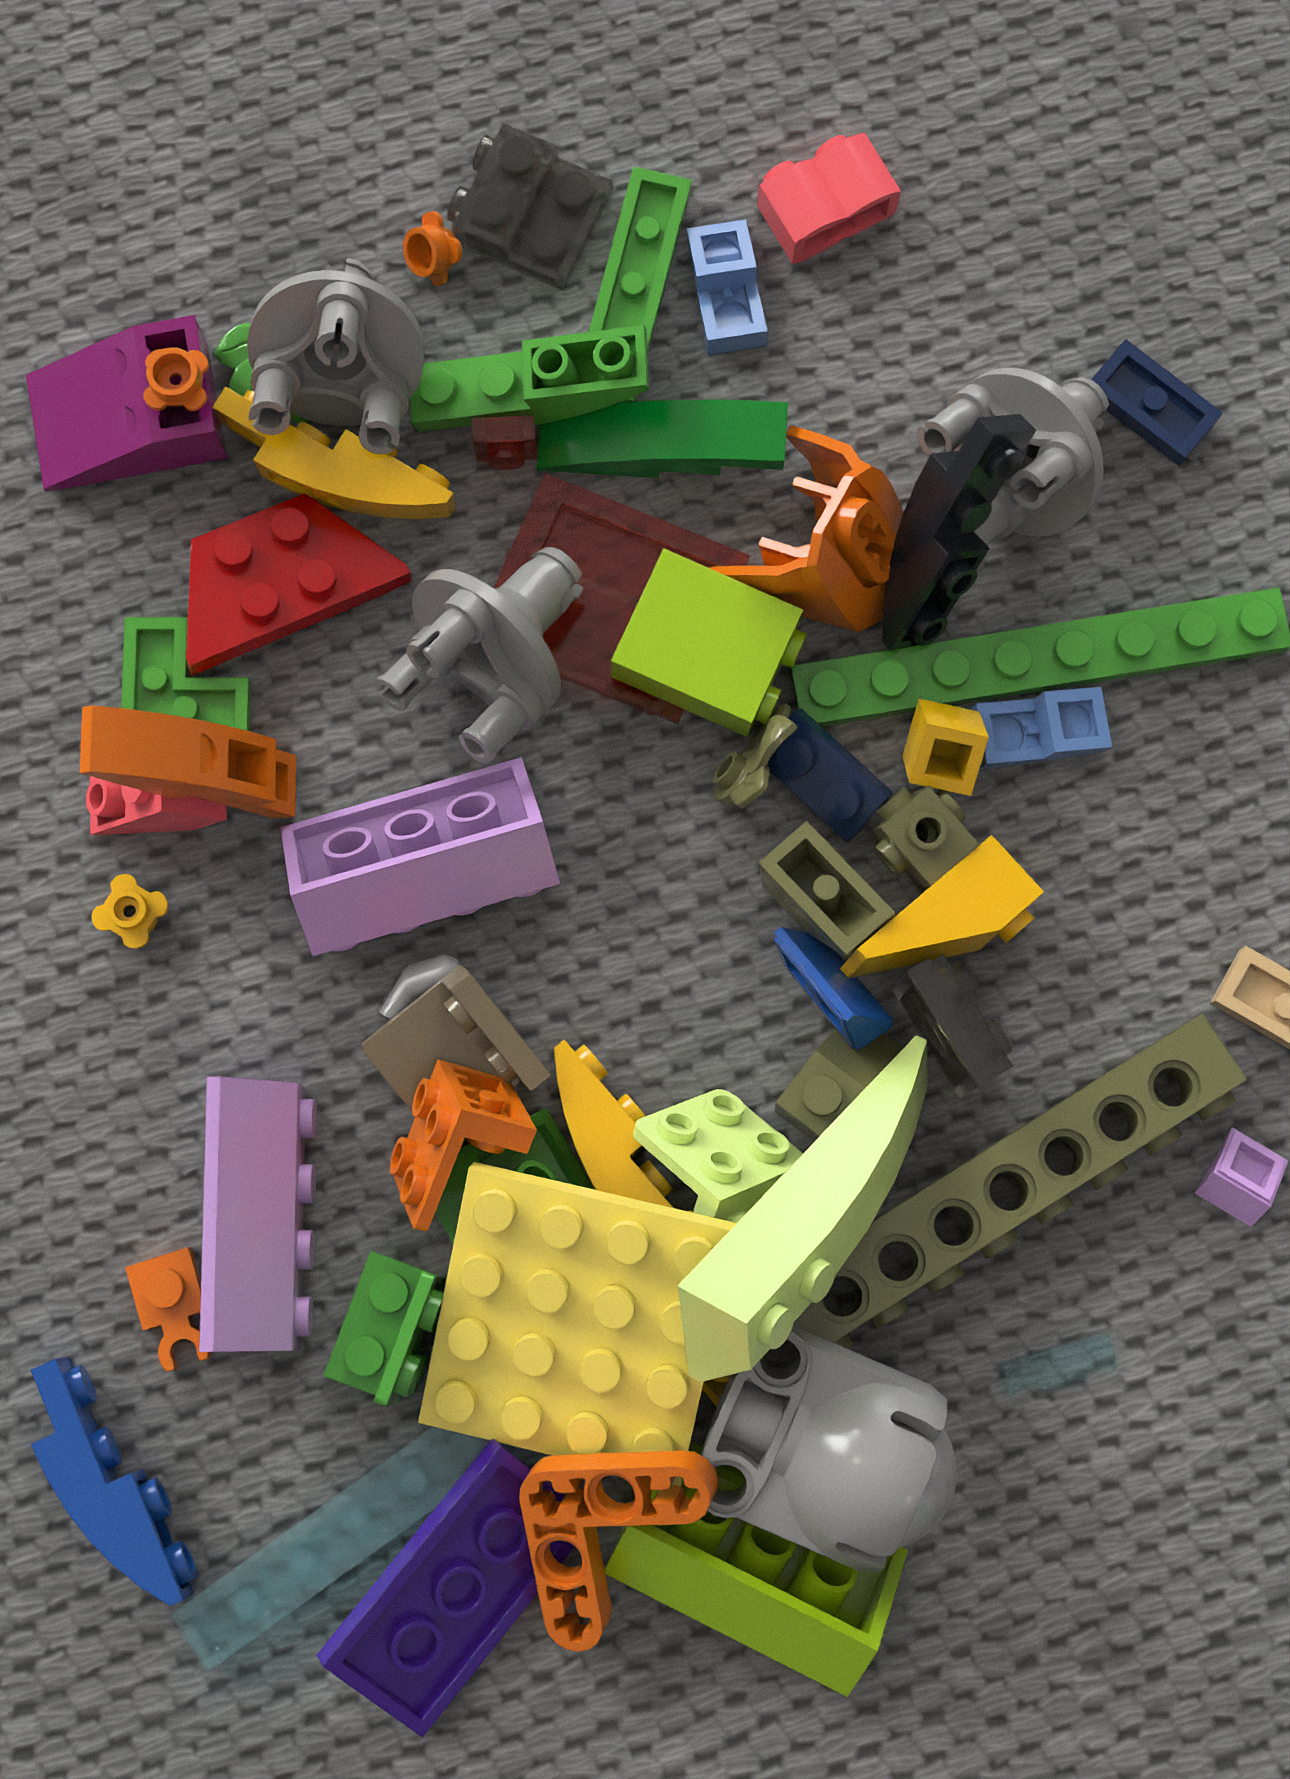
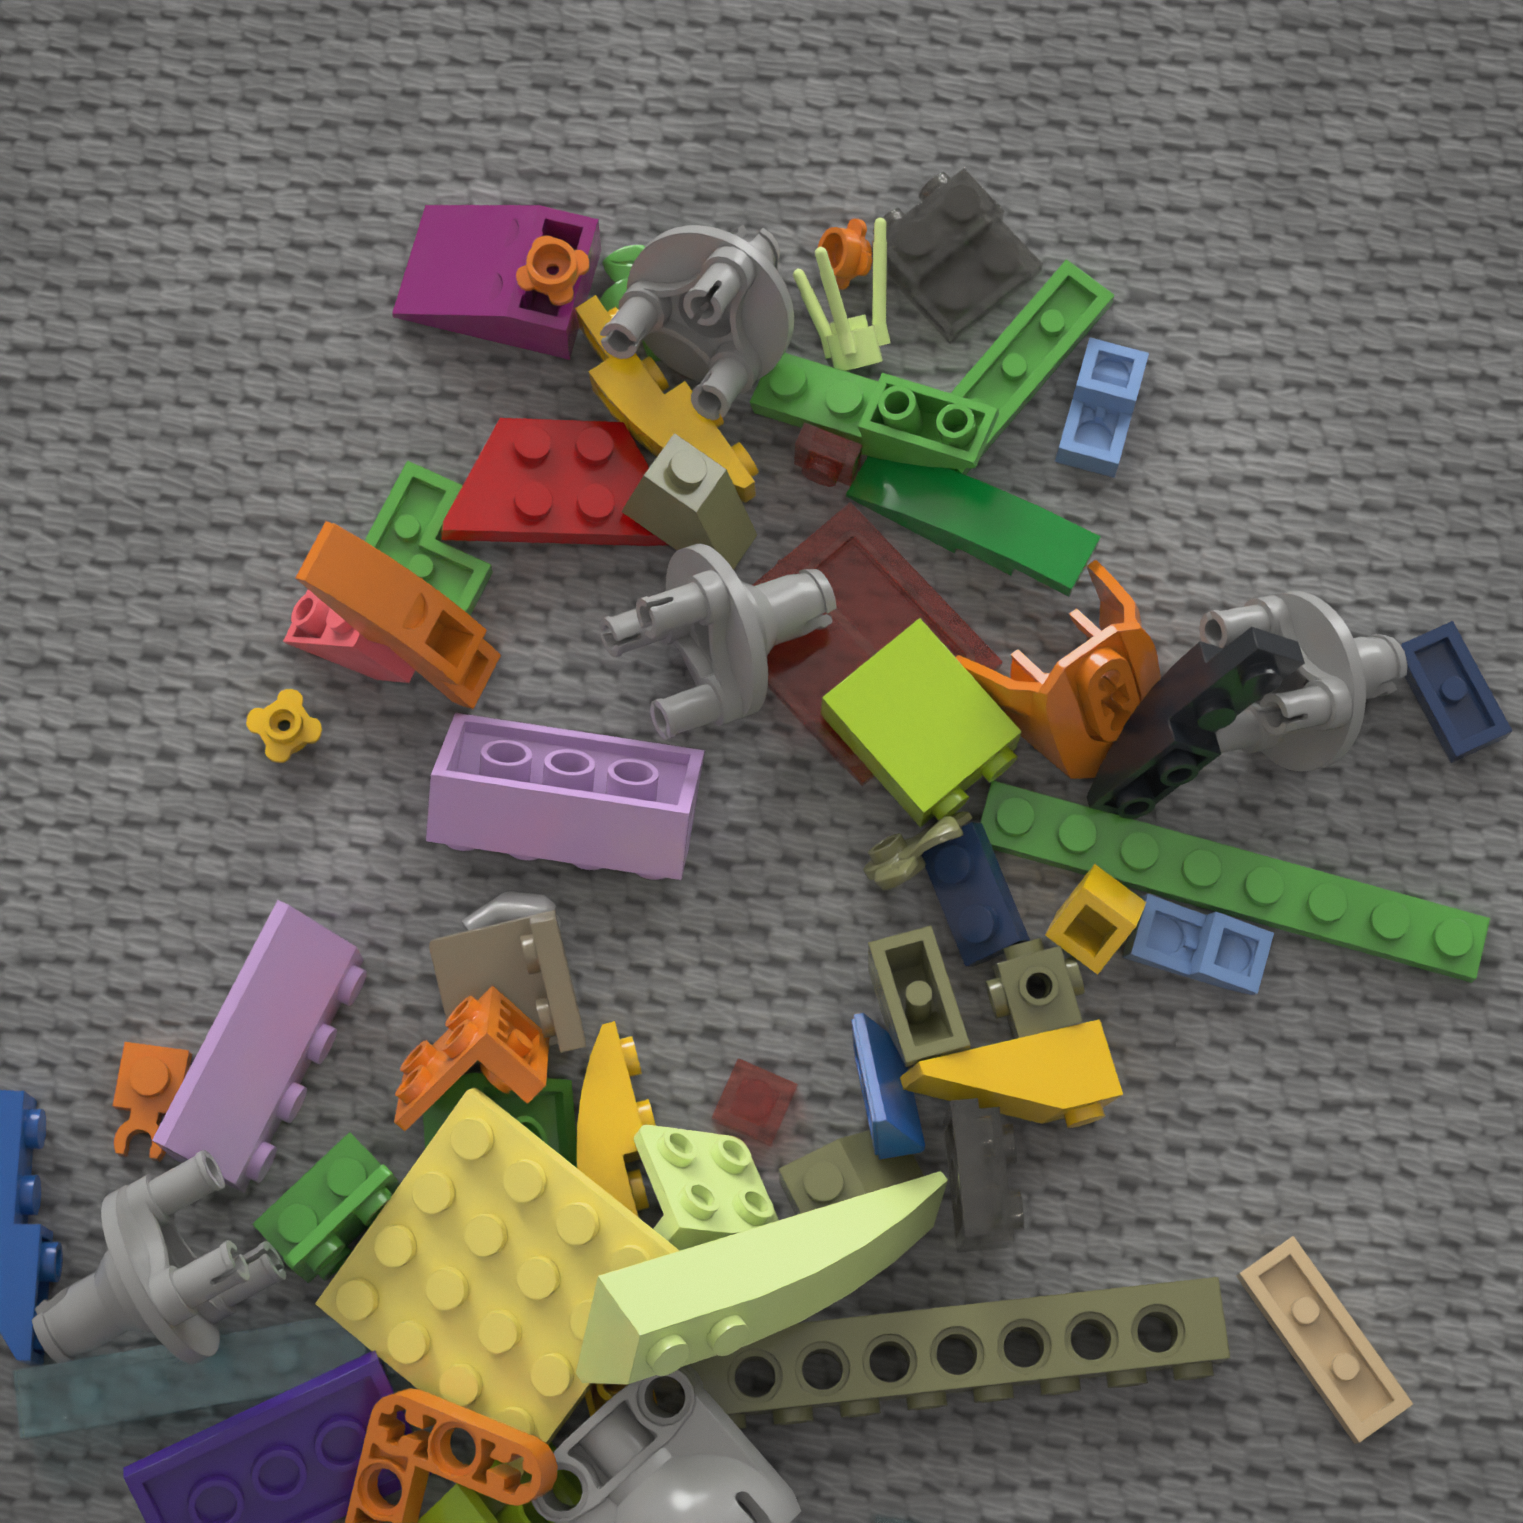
camera: 25 degrees right, 5 degrees down
(260, 1472) = (152, 1276): none -> light grey piece
(403, 537) = (691, 502): none -> olive slope
(477, 326) = (850, 340): none -> yellowish green plant
(719, 1051) = (754, 1102): none -> clear red plate
(827, 196) = (1234, 366): coral brick -> none
(1243, 1178) = (1188, 1453): lavender slope -> none

